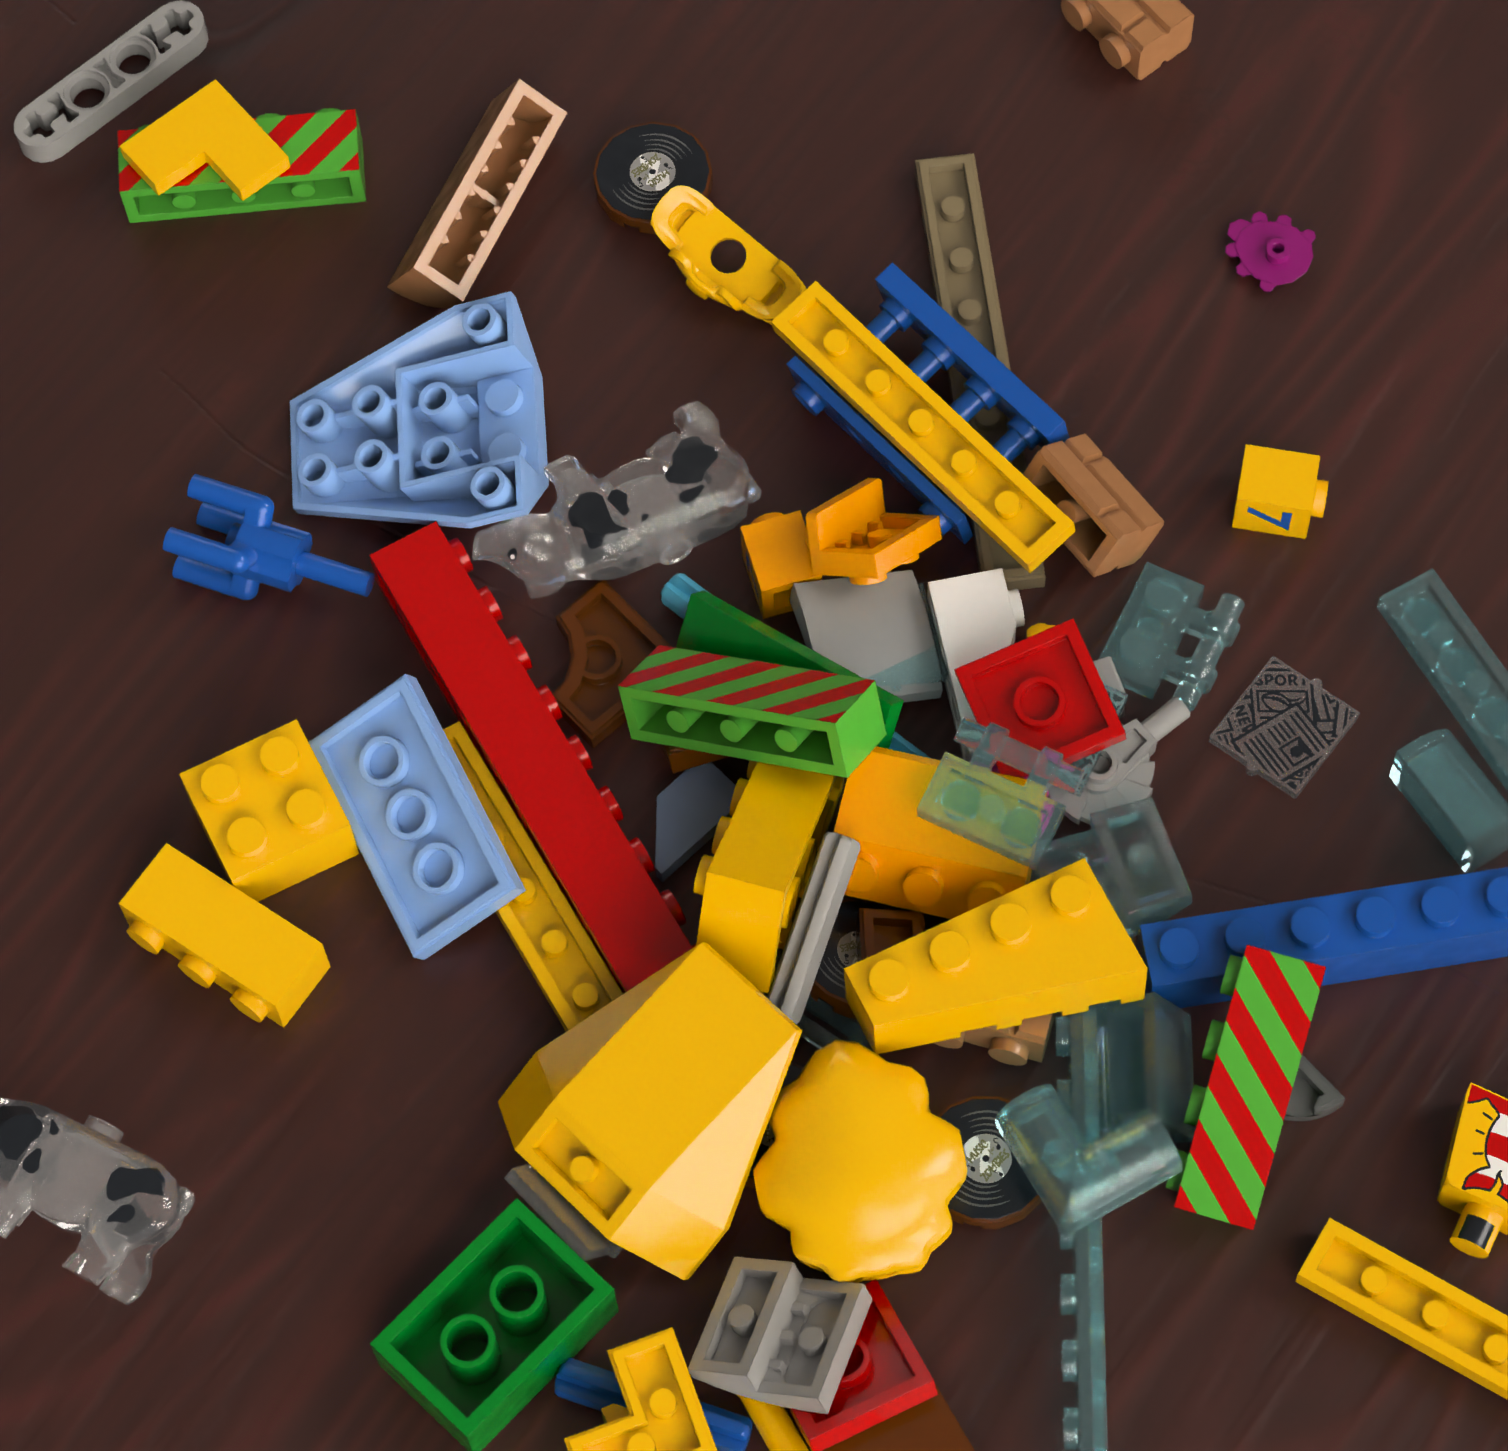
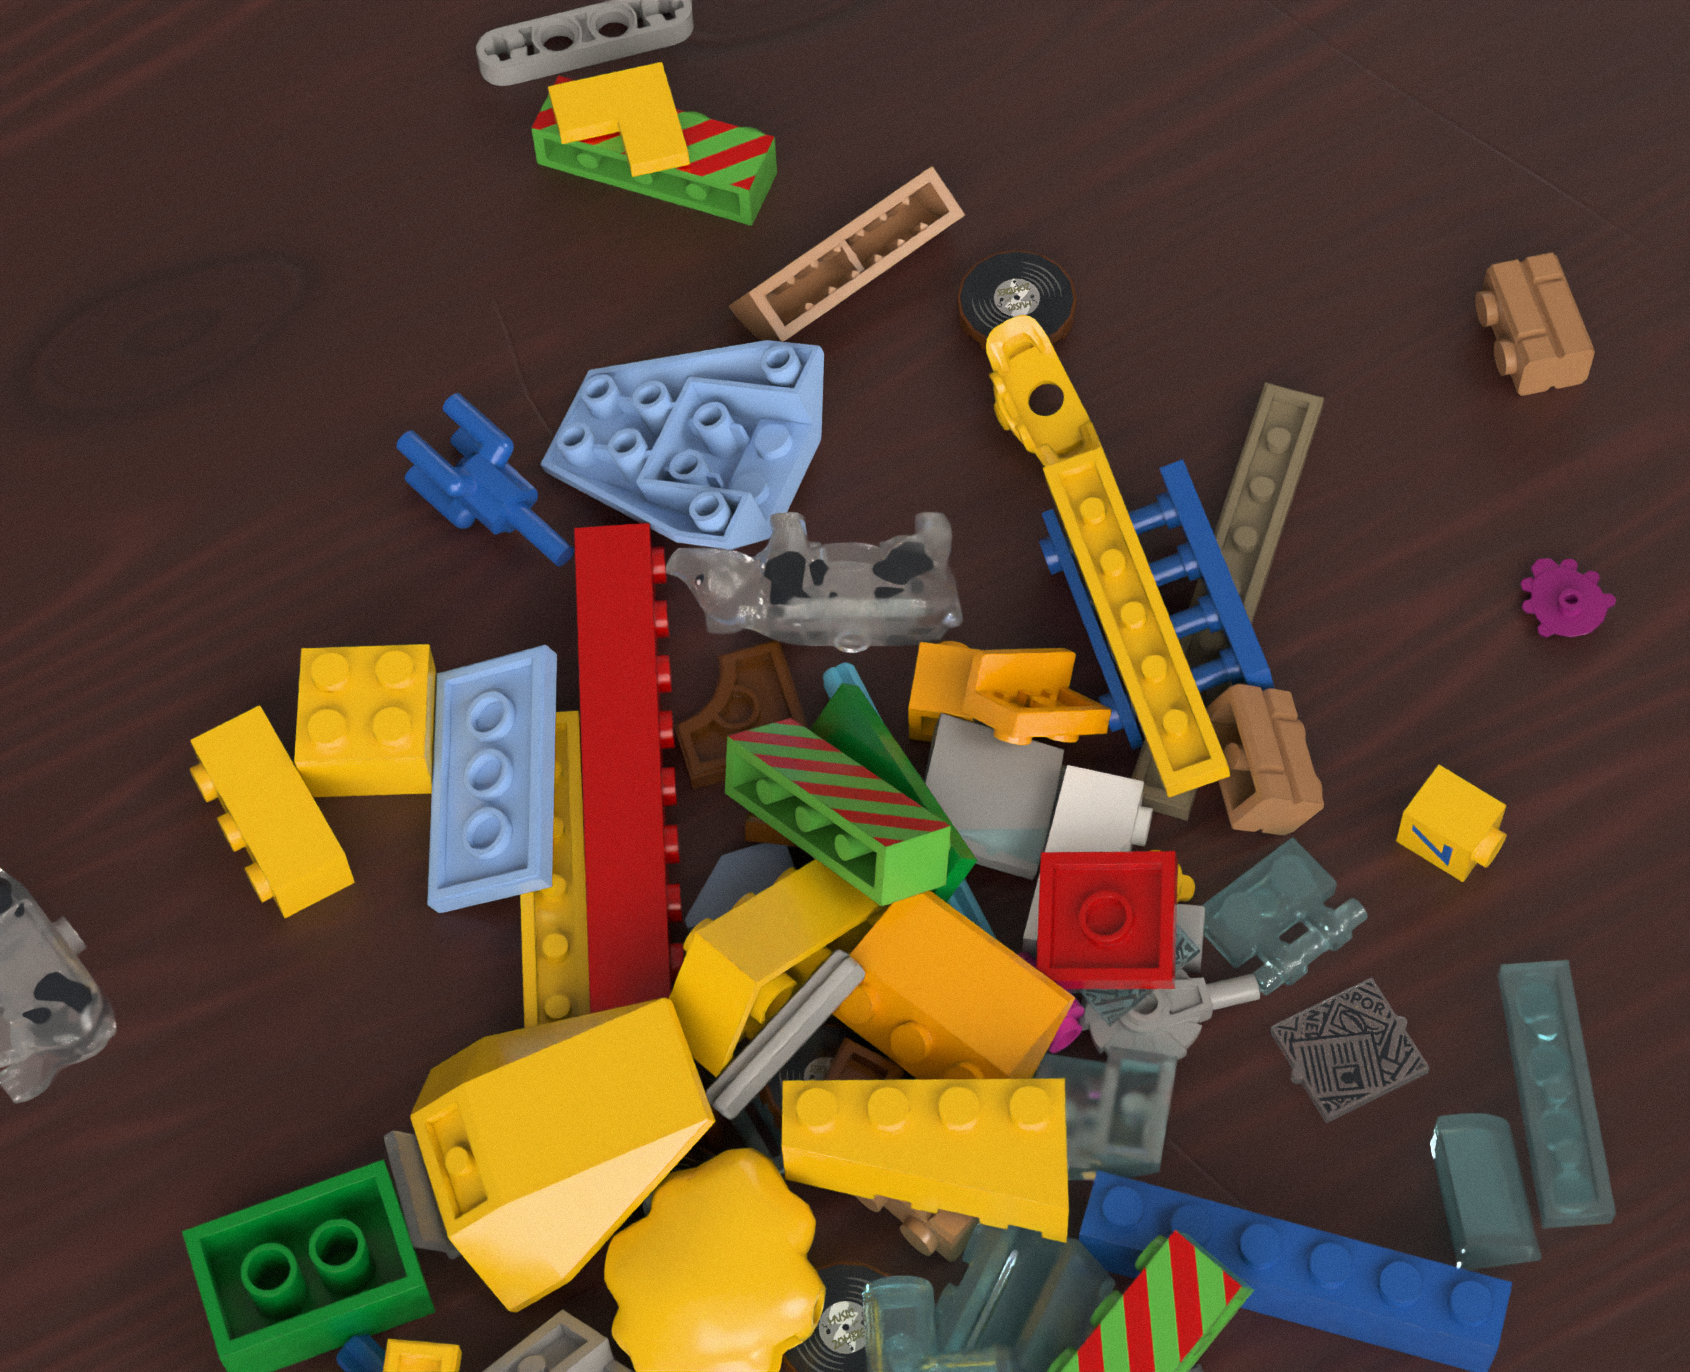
camera: 25 degrees right, 5 degrees down
(993, 809) = (1005, 997): clear light blue plate -> none

